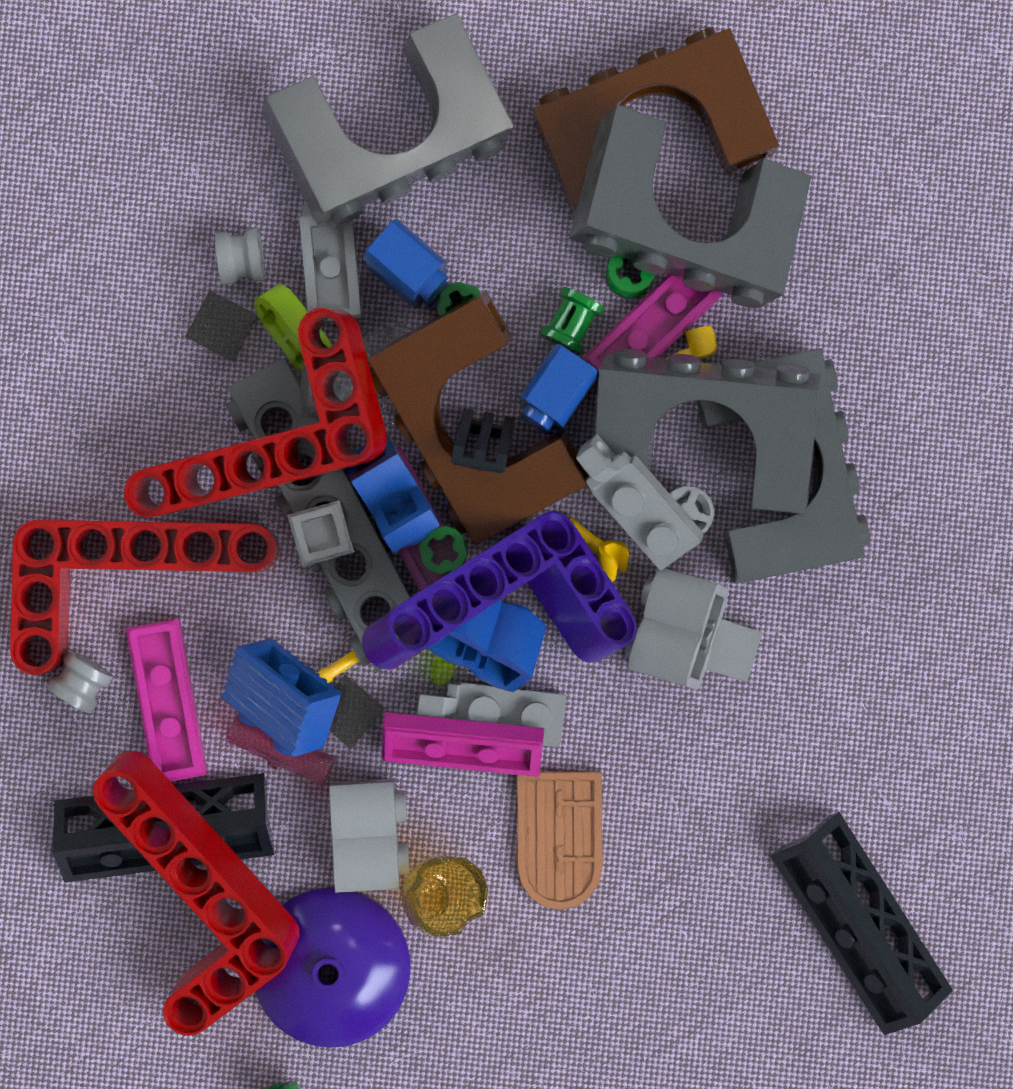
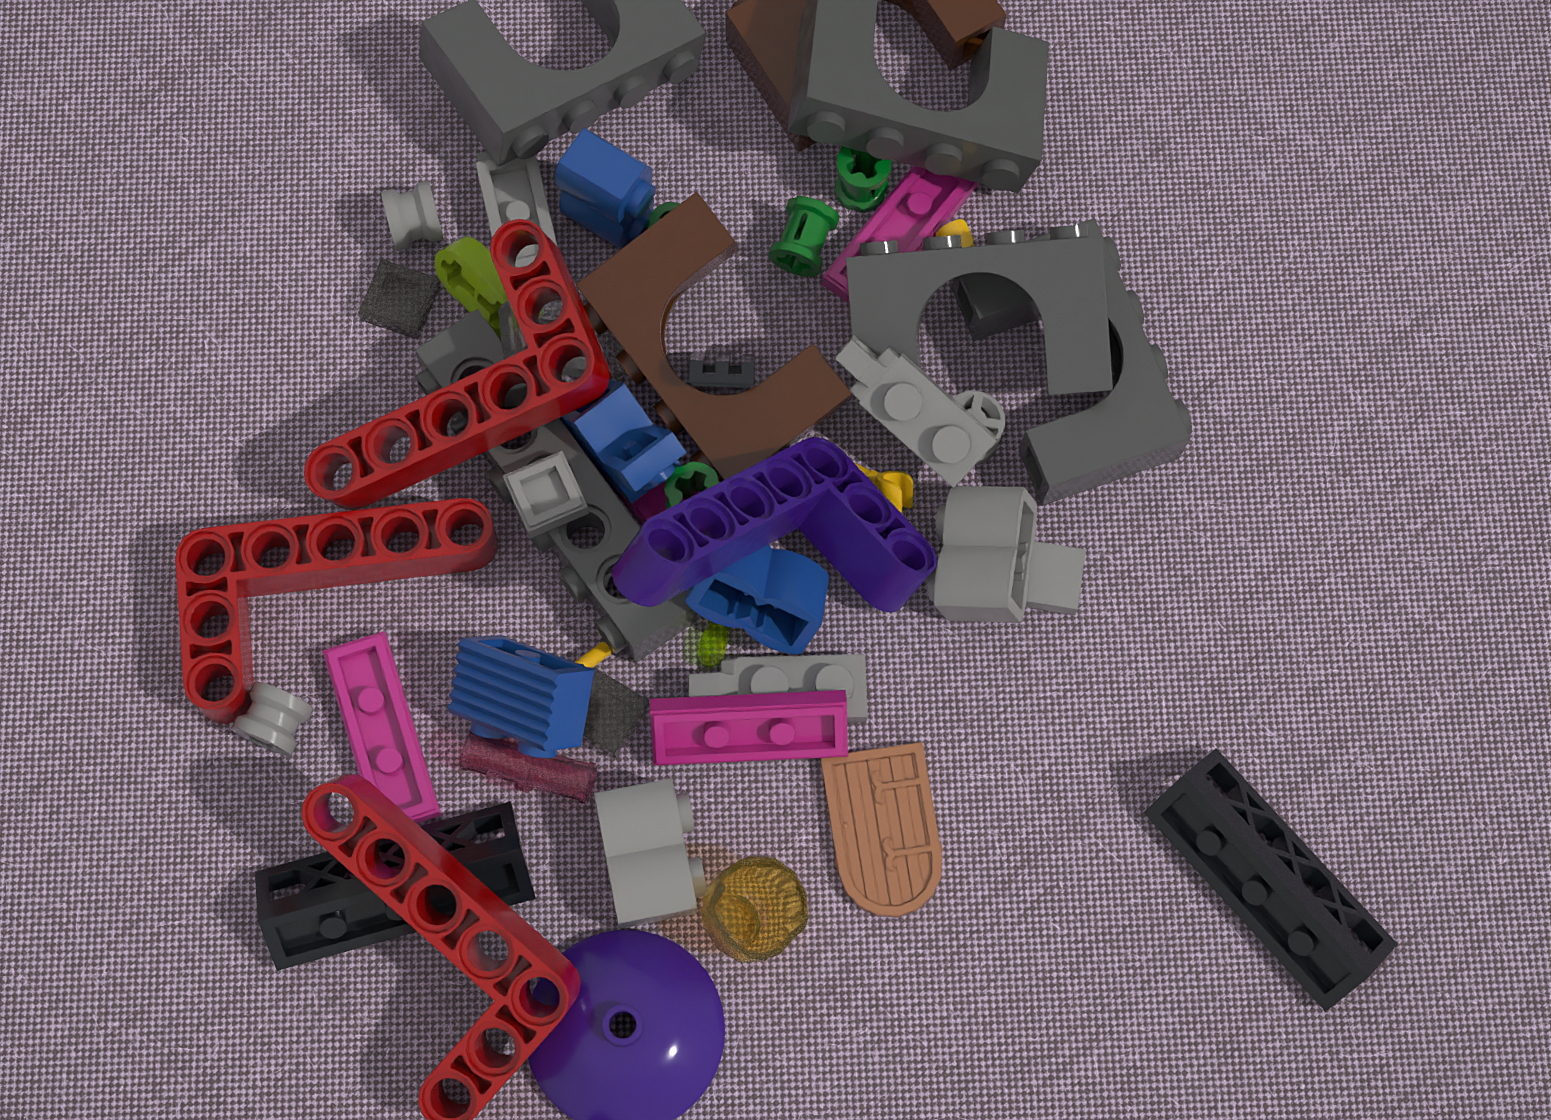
camera: 10 degrees left, 15 degrees down
(556, 390) = (800, 298): blue brick -> none

